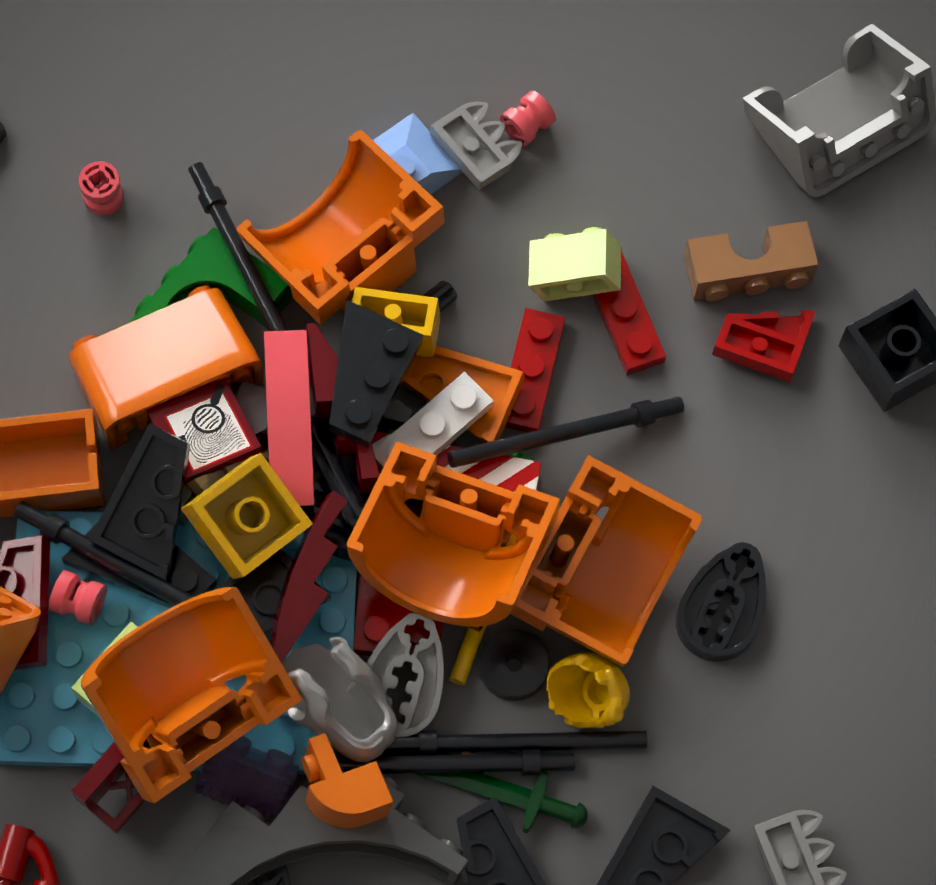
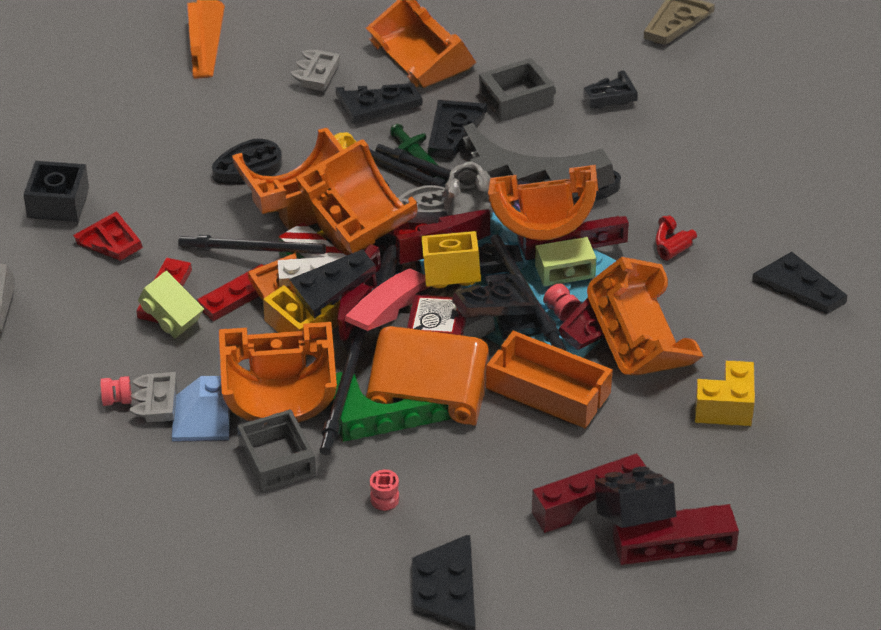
camera: 140 degrees left, 25 degrees down
(237, 137) = (283, 469): none -> dark grey window
(347, 797) = (497, 156): orange brick -> none
(719, 272) = (98, 273): medium nougat arch -> none

